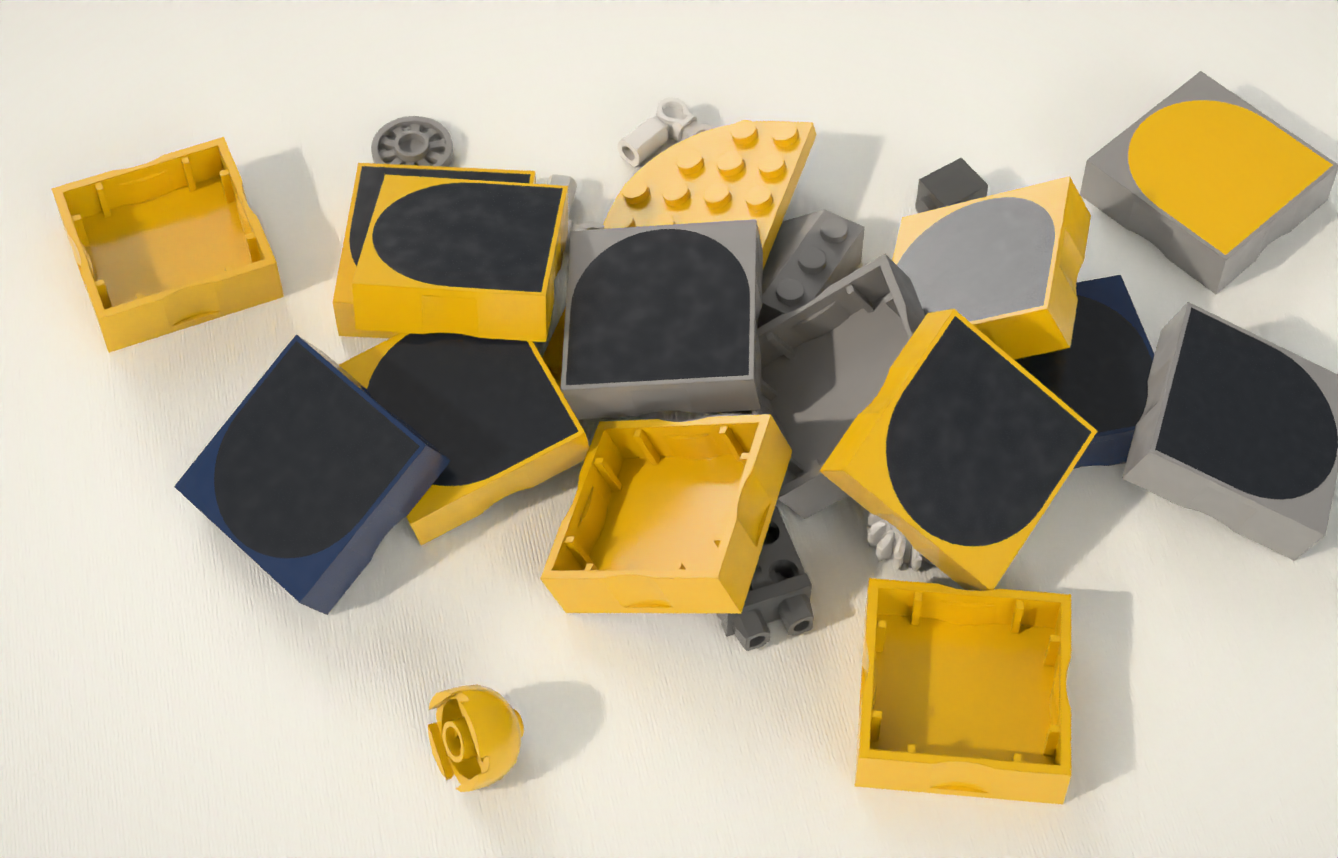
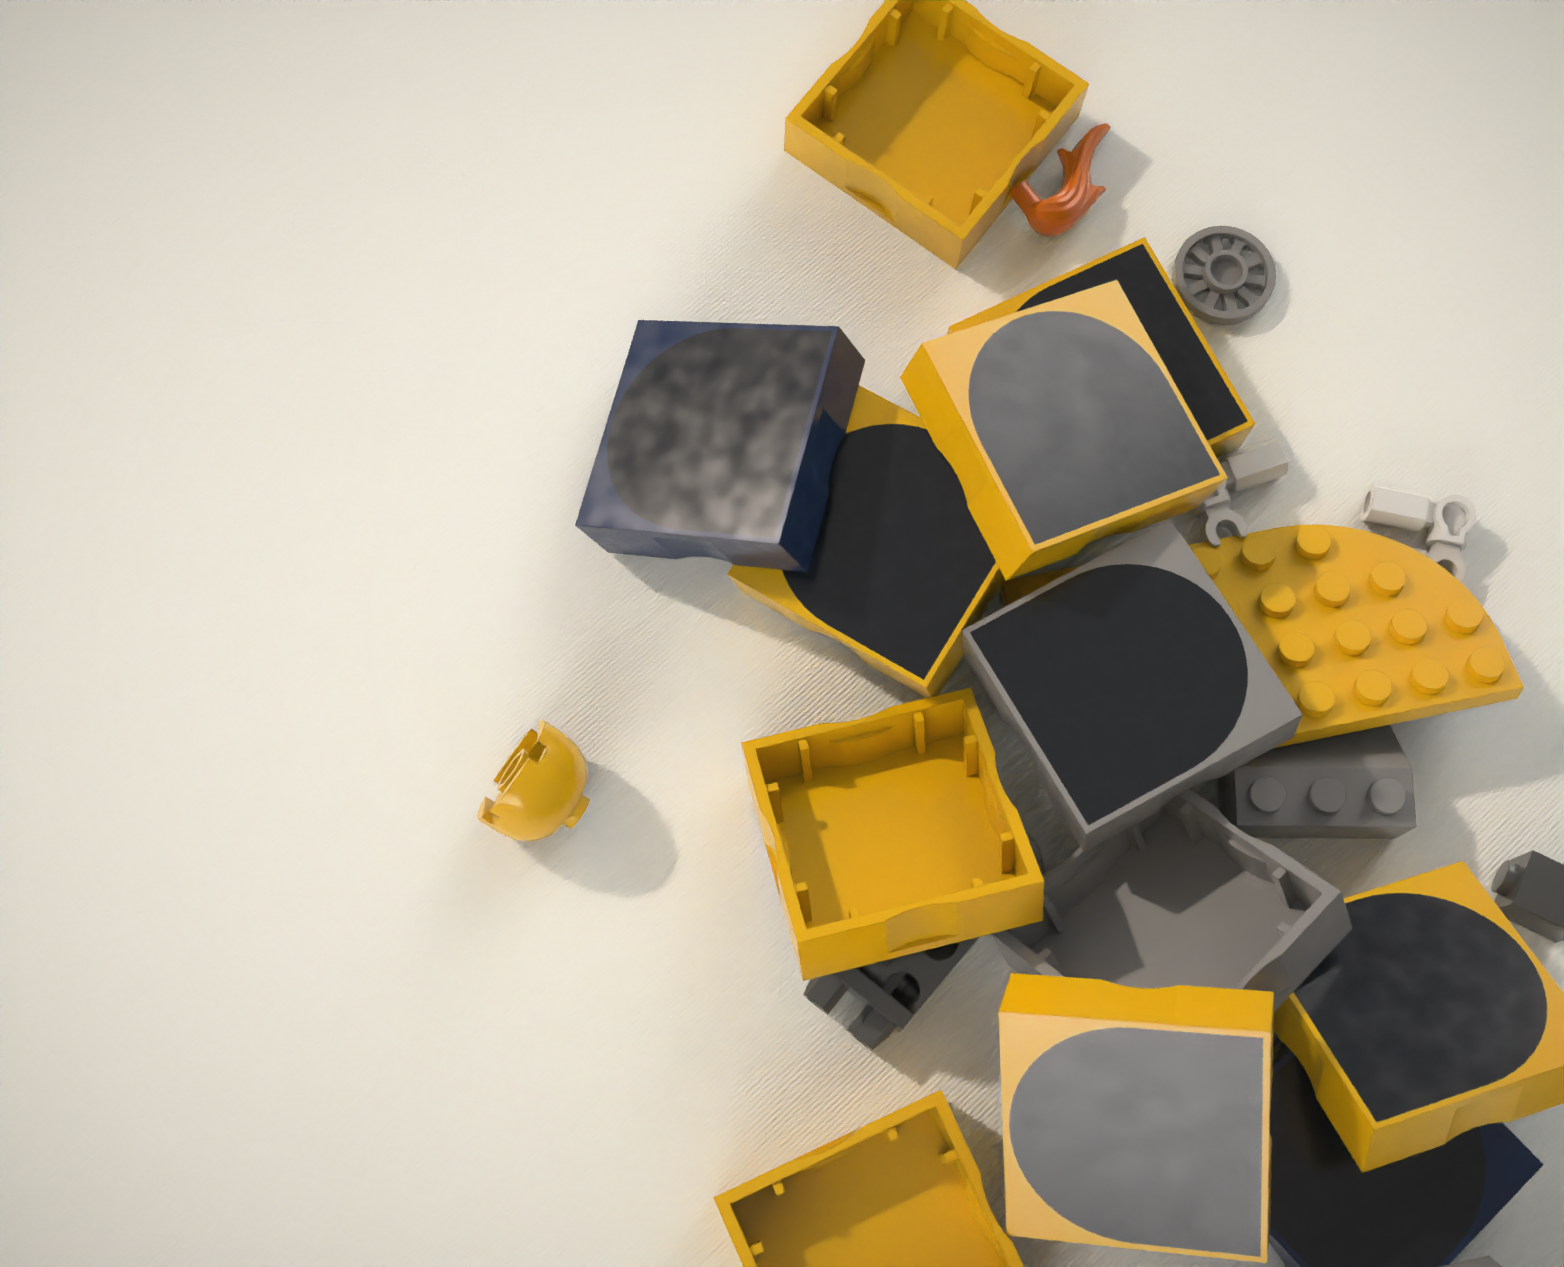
camera: 55 degrees right, 20 degrees up
(288, 195) = (1076, 194): none -> orange piece

